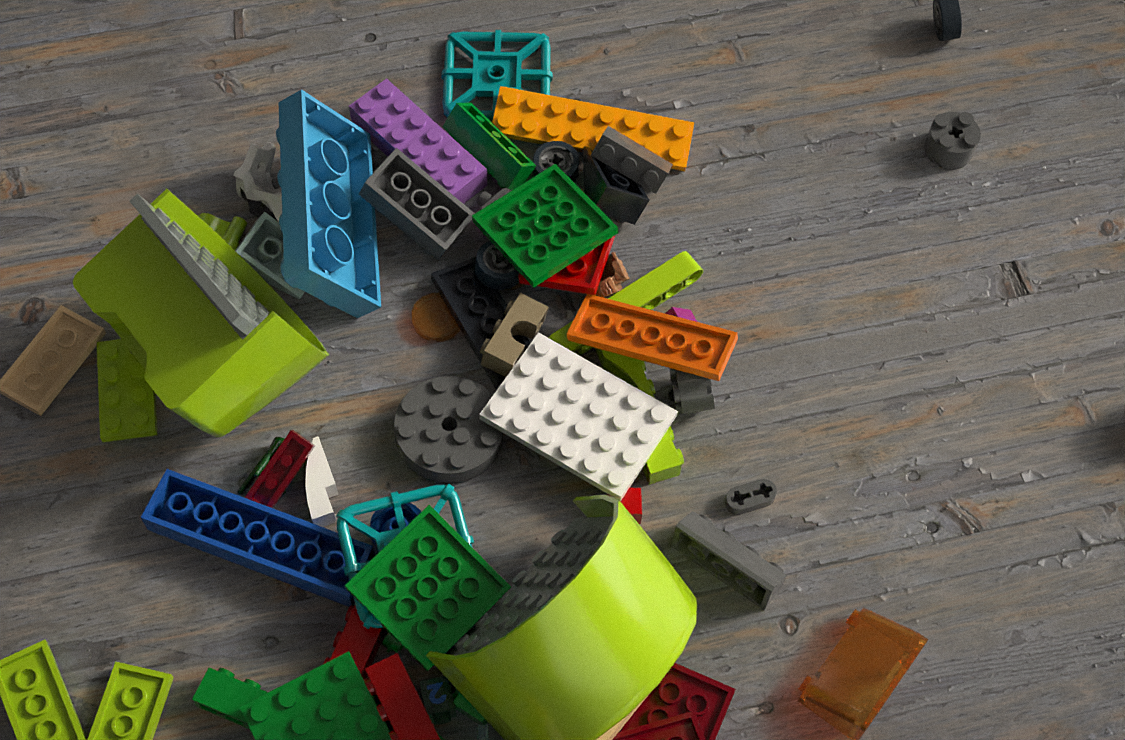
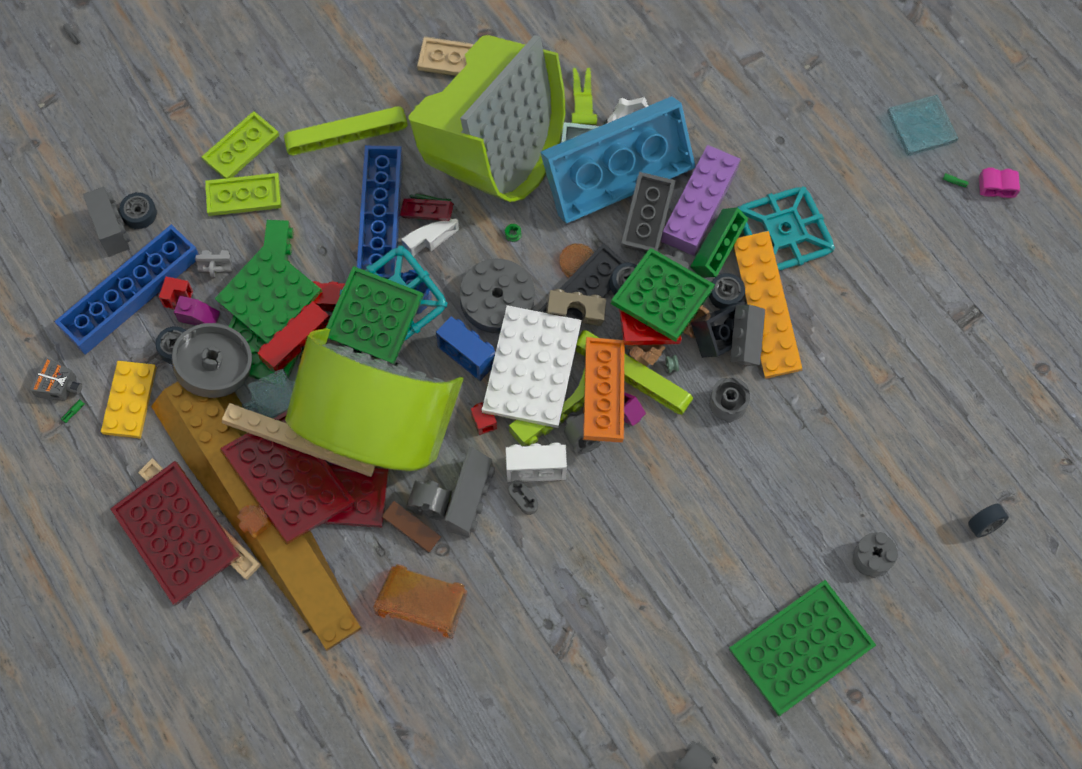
camera: 70 degrees right, 5 degrees up
(91, 546) = (345, 130): none -> lime beam
(360, 388) = (513, 238): none -> green bush
(517, 489) = (465, 348): none -> blue brick
(631, 258) = (672, 364): none -> sand green bush
(706, 212) = (729, 389): none -> dark grey brick
(715, 458) = (536, 462): none -> white brick
(723, 610) = (429, 499): none -> dark grey brick
(749, 651) = (411, 527): none -> reddish brown tile
(1042, 257) = (802, 647): none -> green plate

